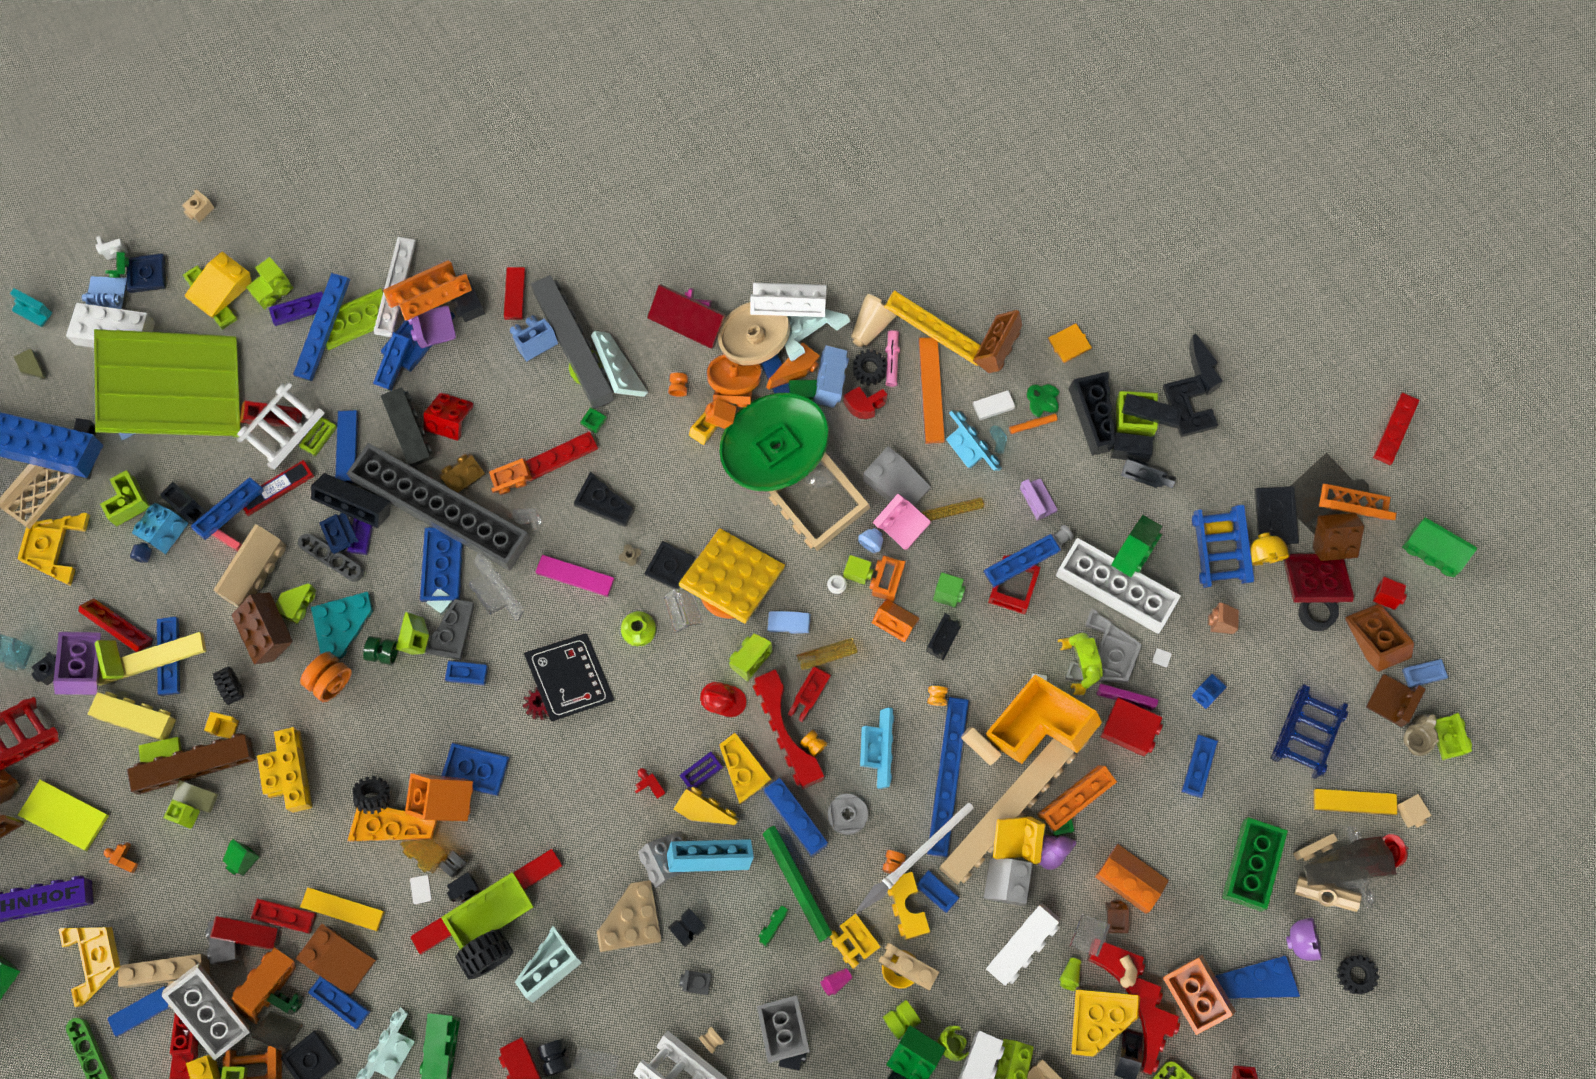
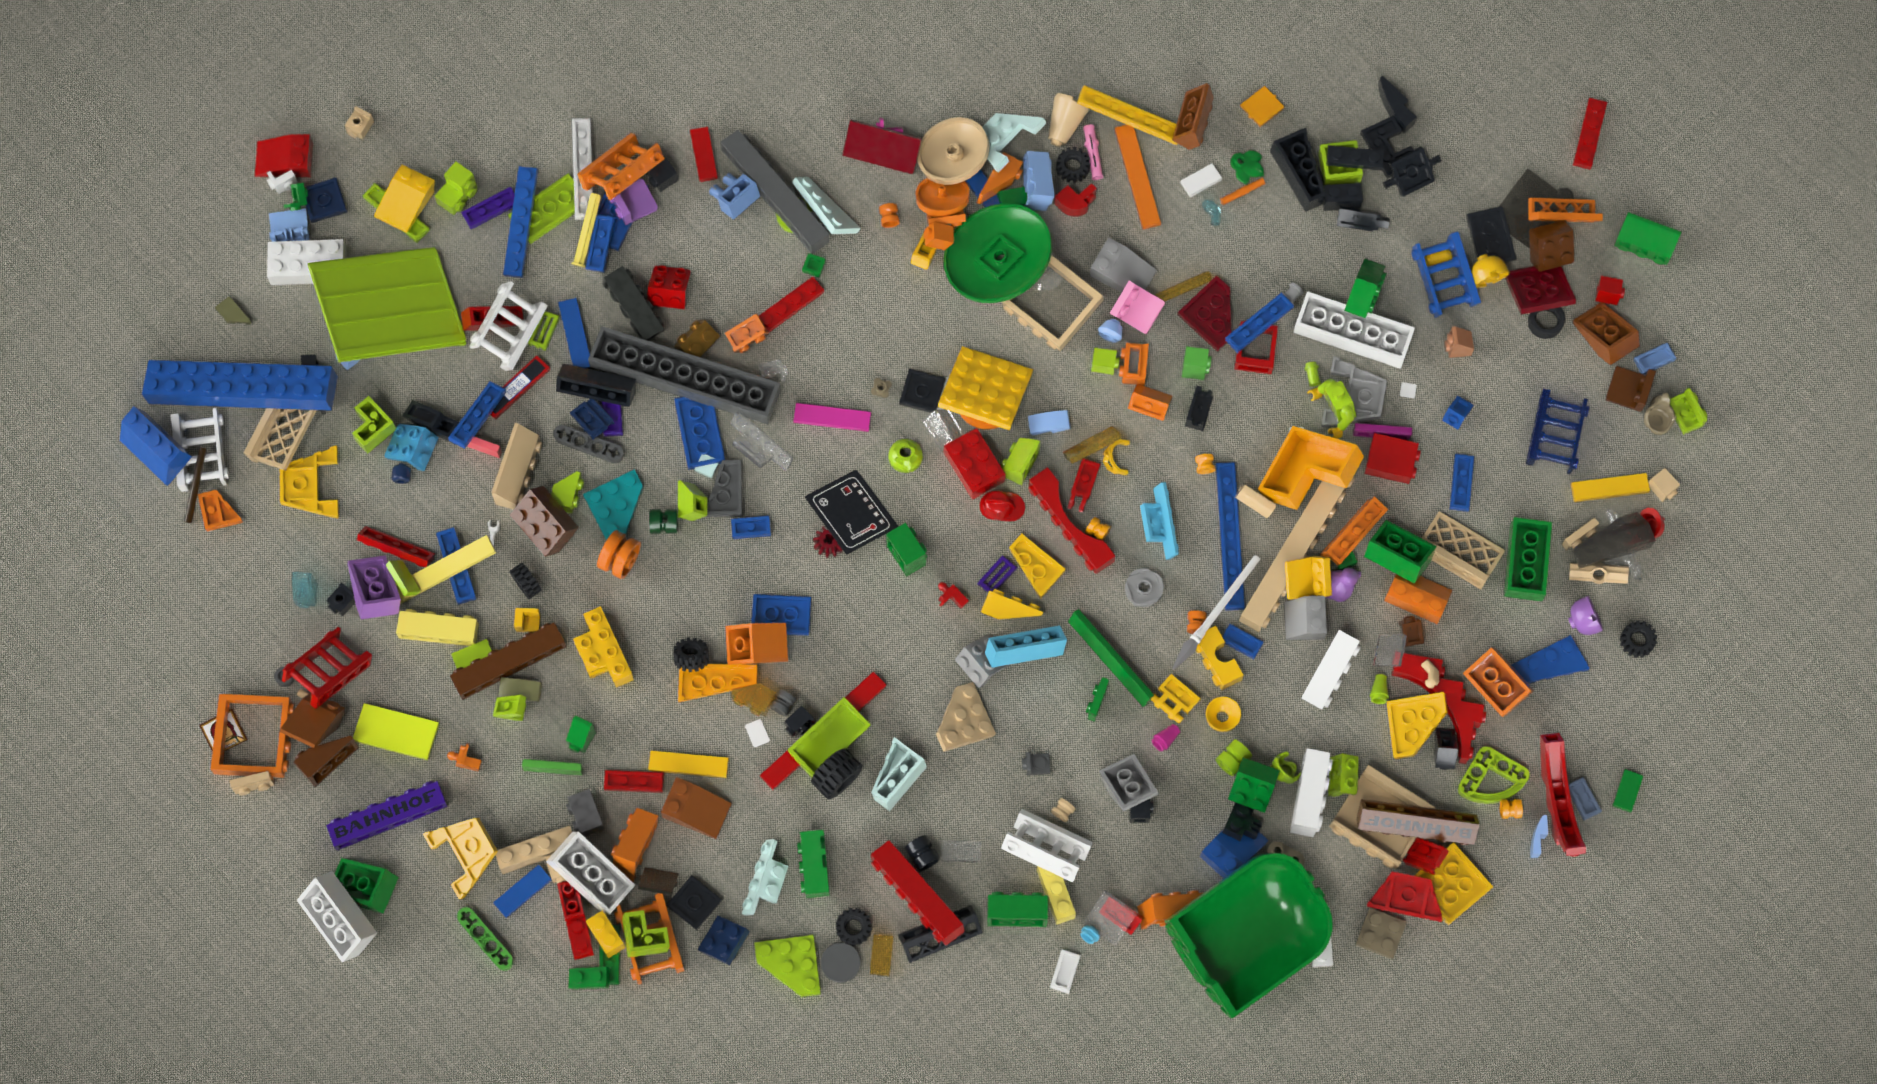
camera: 15 degrees left, 0 degrees up
(30, 308) = (218, 256): teal bracket -> none
(124, 223) = (284, 154): none -> red slope
(204, 885) = (552, 767): none -> bright green tile
(215, 627) = (493, 530): none -> white hand
(243, 933) = (604, 800): red tile -> none
(282, 1002) = (655, 855): dark green bracket -> none
(339, 1002) = (707, 846): blue tile -> none
(381, 346) = (587, 229): none -> light yellow axle
(601, 501) = (838, 341): black wing -> none
(612, 727) = (906, 549): none -> green brick
(687, 927) = (1017, 716): black wheel -> none
(703, 650) = (974, 463): none -> red brick
(788, 299) = (980, 112): white fence -> none
(795, 817) = (1096, 599): blue brick -> none
(837, 584) = (1086, 378): white plate -> none
(841, 671) = (1108, 455): none -> yellow helmet
(909, 967) = (1231, 709): tan plate -> none
(968, 445) = (1184, 223): medium azure bracket -> none
(975, 541) = (1210, 313): none -> dark red plate
(1038, 498) = (1261, 262): lavender panel -> none
(1067, 622) = (1312, 373): none -> lime pin
(1121, 830) = (1400, 551): none -> green brick
(1177, 852) = (1455, 563): none -> tan fence
(1207, 434) = (1411, 171): none -> black plate

